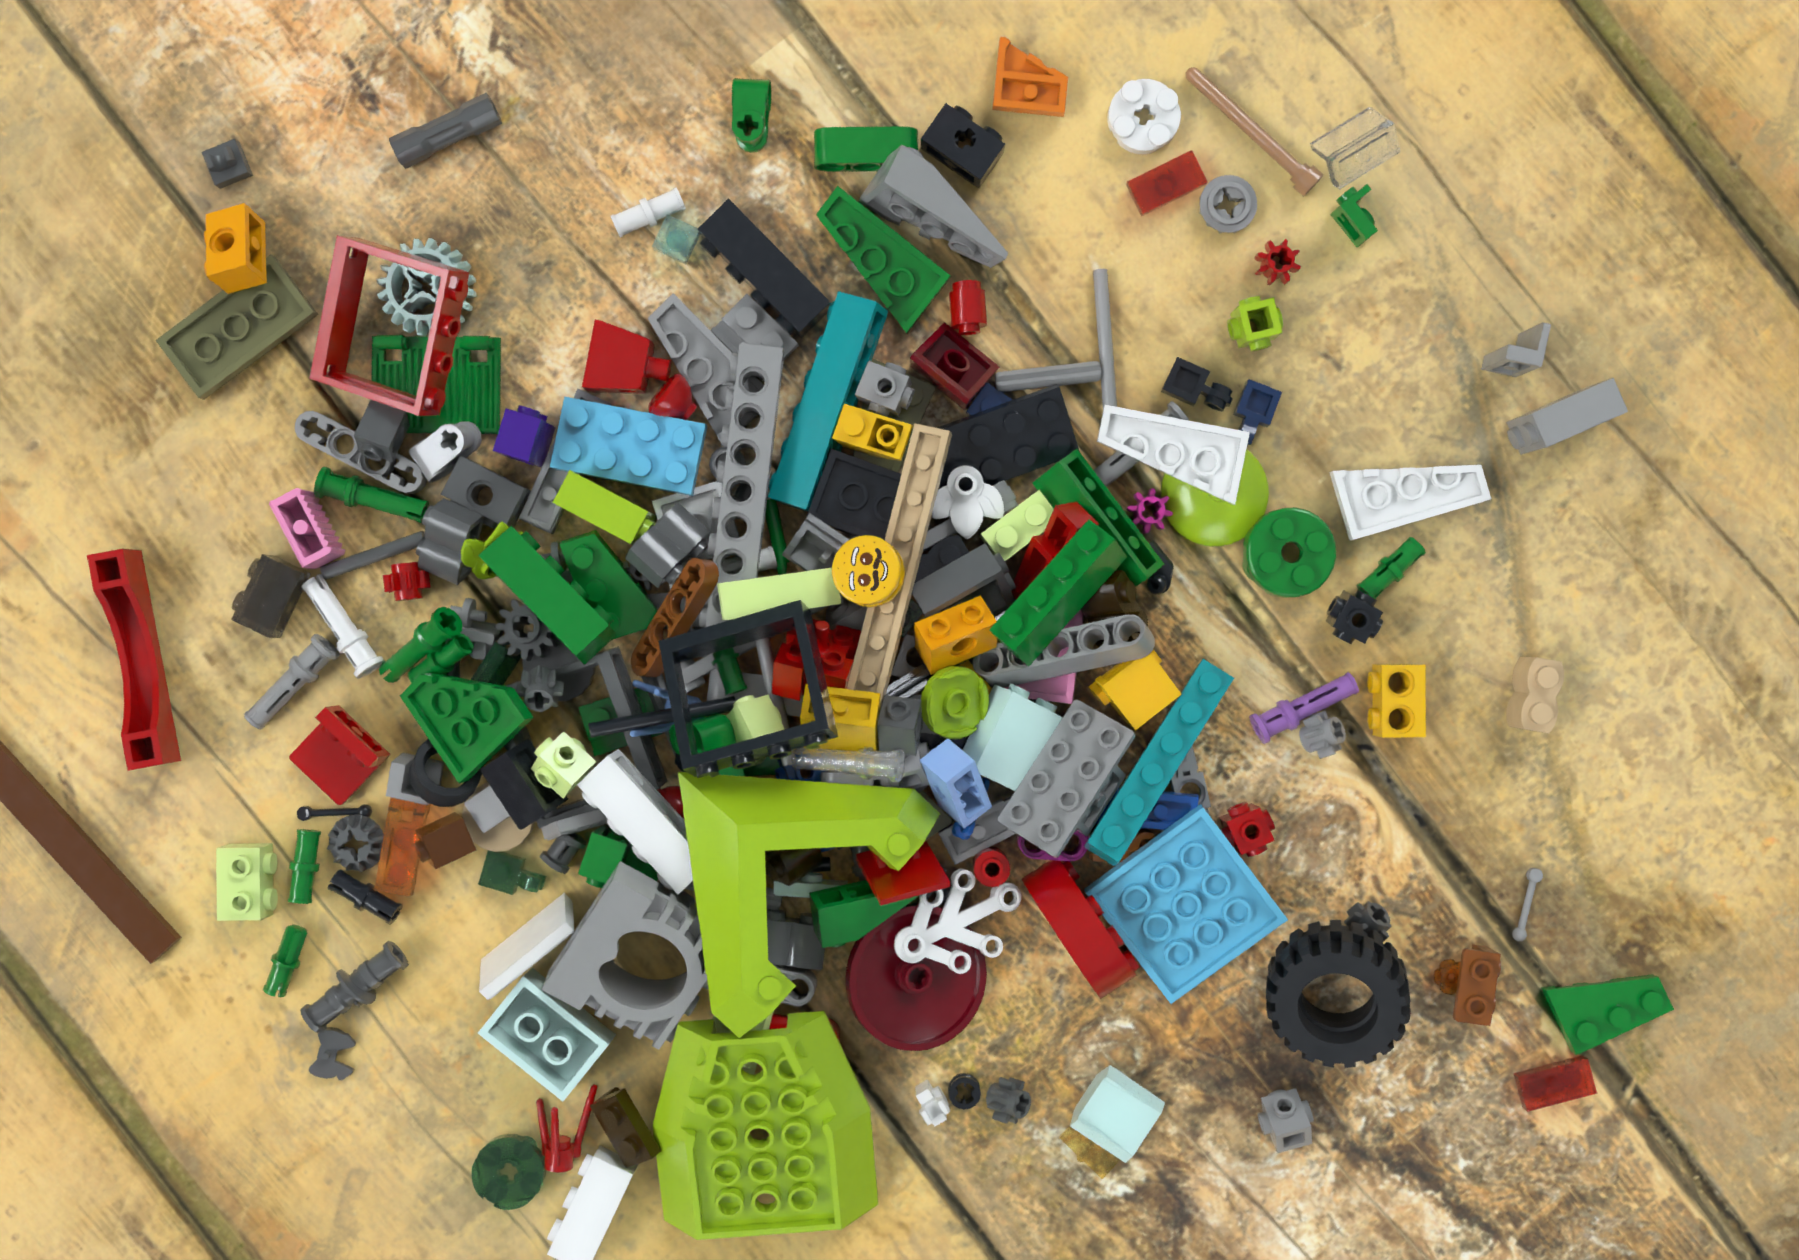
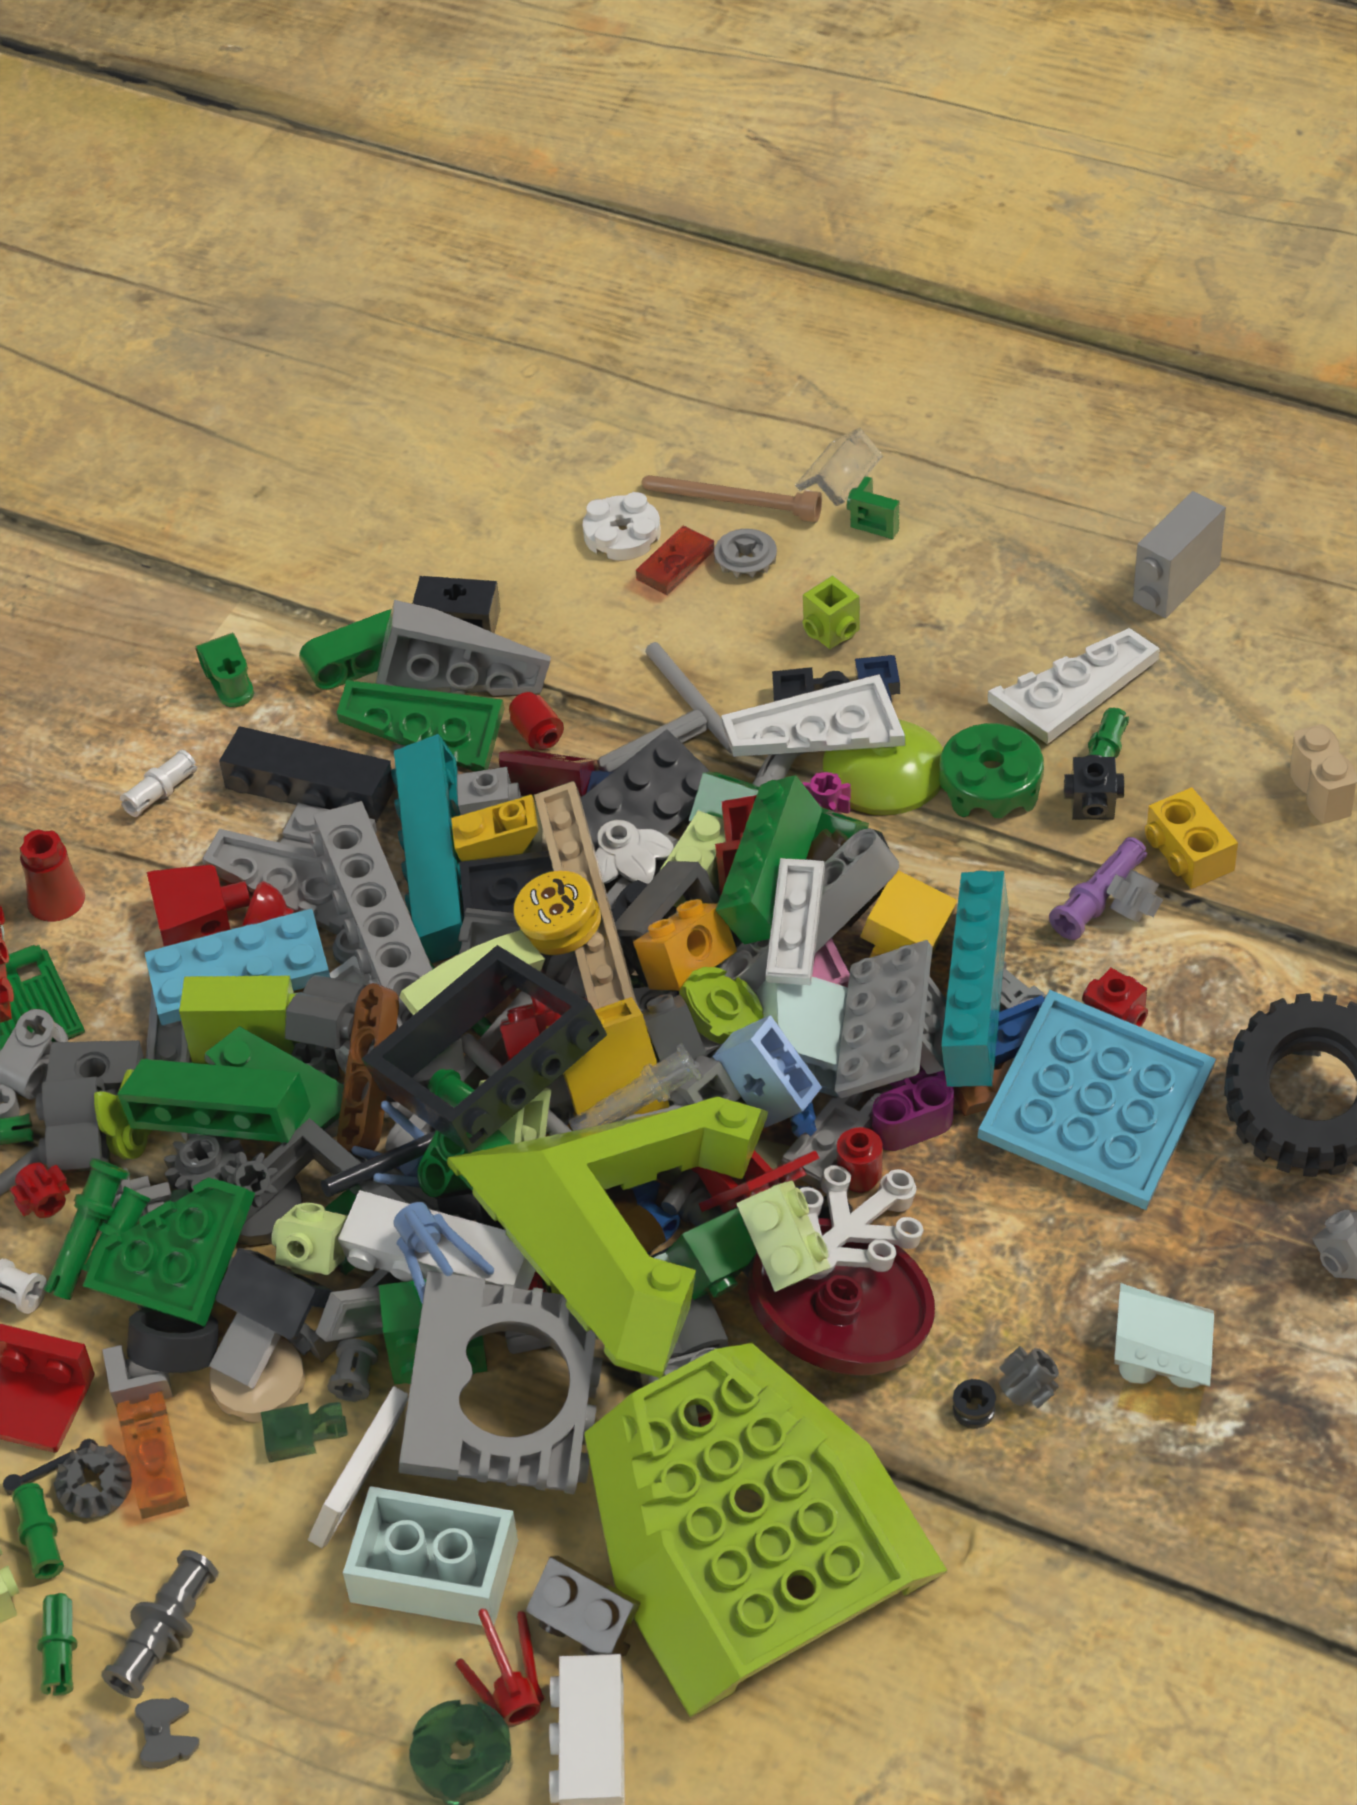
camera: 20 degrees left, 40 degrees down
(365, 897) = (129, 1528): black pin -> none
(444, 841) = (204, 1411): reddish brown brick -> none
(524, 436) = (118, 996): dark purple brick -> none
(531, 289) = (49, 877): none -> red plant
(629, 825) = (422, 1233): none -> medium blue plant
(676, 239) = (200, 791): clear light blue plate -> none
(887, 947) = (784, 1235): none -> yellowish green brick
(933, 1103) = (940, 1420): white plate -> none
(1027, 84) = (493, 545): orange wing -> none
(1043, 671) = (795, 921): none -> white tile
(1079, 928) = (1011, 1159): red brick -> none
(1267, 265) = (821, 564): red gear -> none
(1523, 357) = (1097, 532): light grey panel -> none

